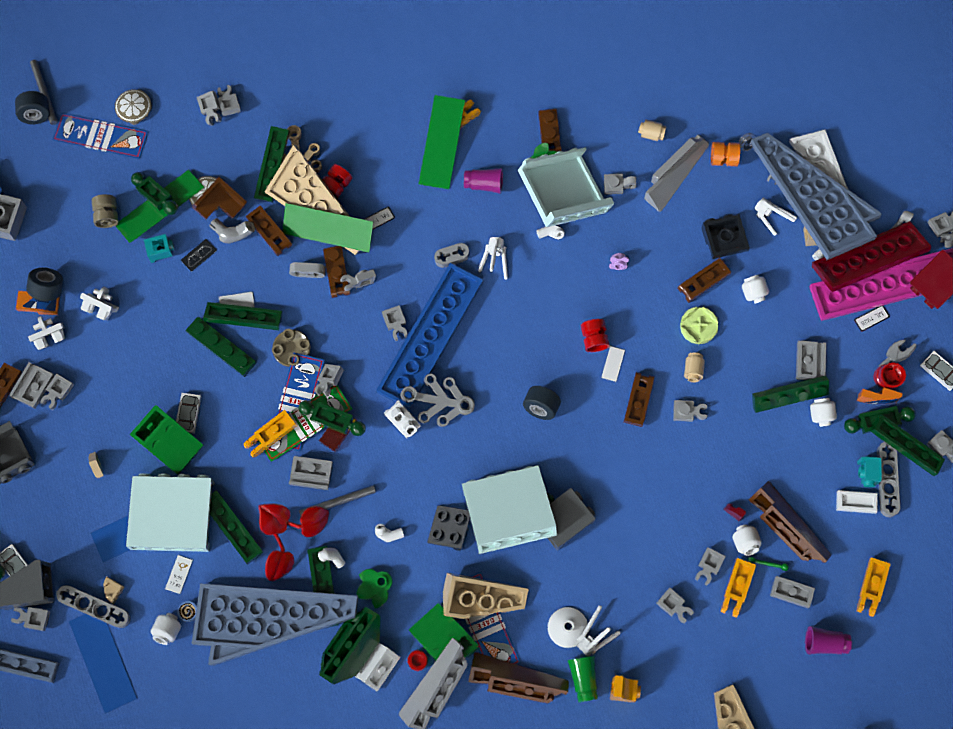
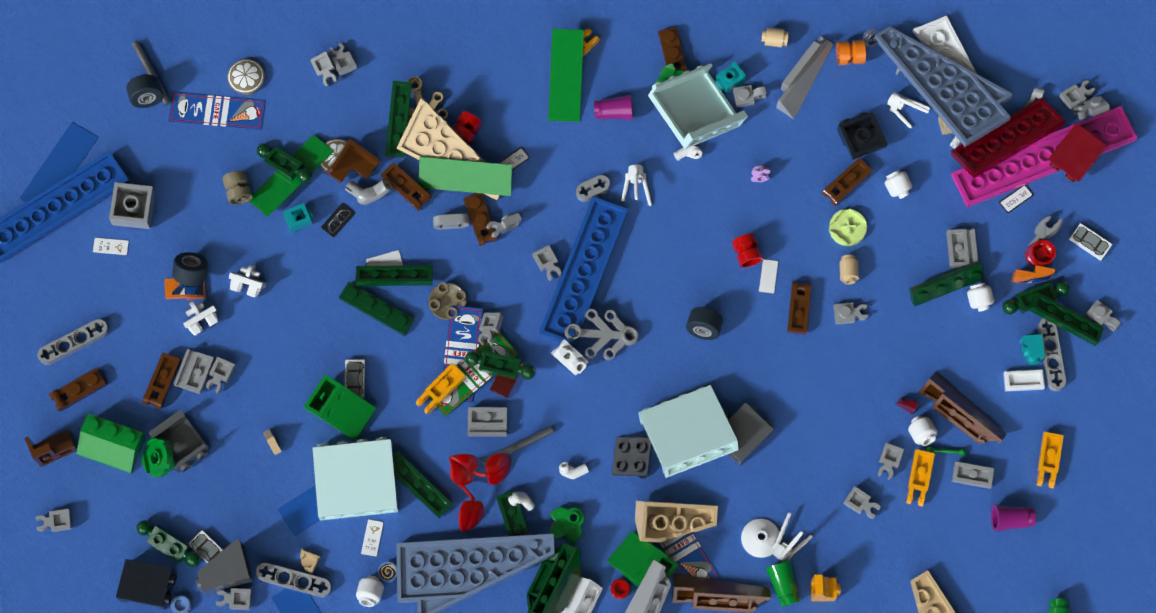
camera: 10 degrees left, 0 degrees up
(609, 166) = (727, 84): none -> teal brick

